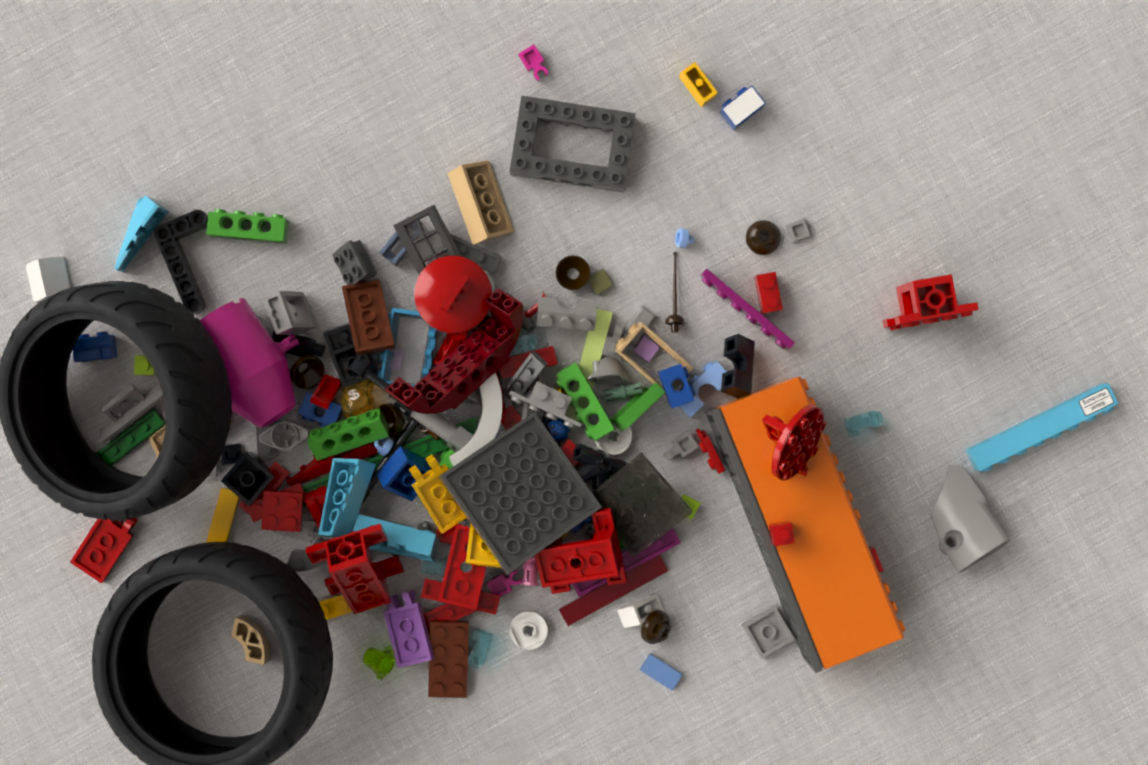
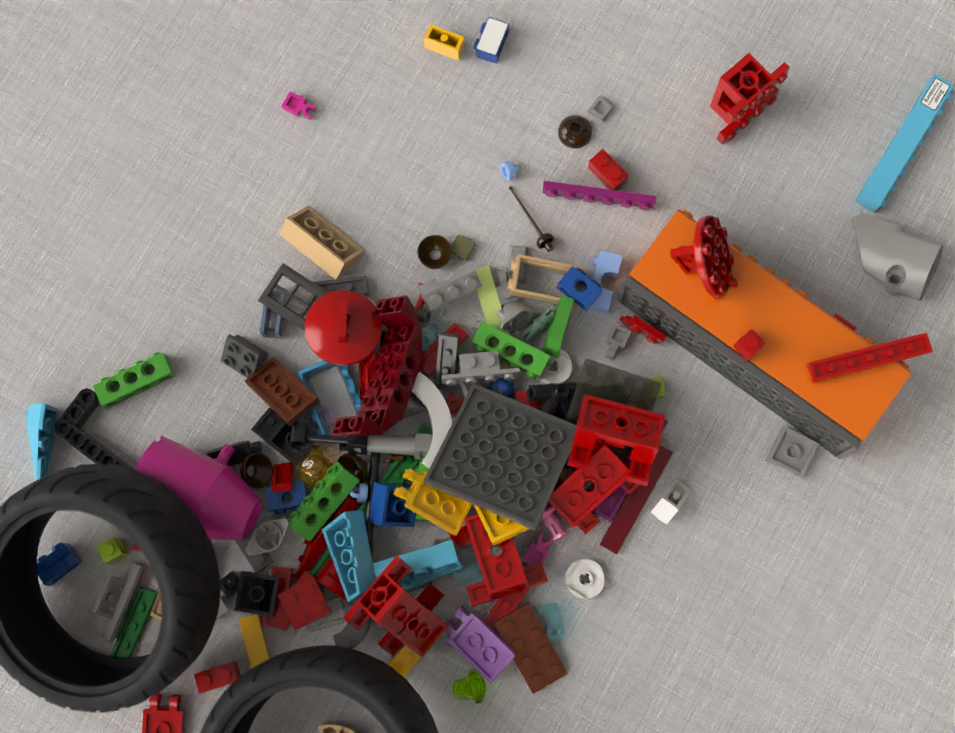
camera: 25 degrees left, 10 degrees down
(176, 525) = (217, 677): none -> red brick
(284, 322) = (209, 421): light grey window -> none
(568, 172) = (379, 174): dark grey brick -> none
(630, 532) = (619, 427): none -> red piece
(646, 349) = (535, 278): lavender tile -> none
(656, 627) = (694, 506): dark brown piece -> none
(661, 671) = (723, 544): medium blue tile -> none
(741, 353) = (616, 231): black arch -> none
(863, 420) = (758, 223): clear light blue leg -> none
(875, 605) = (869, 357): none -> red plate

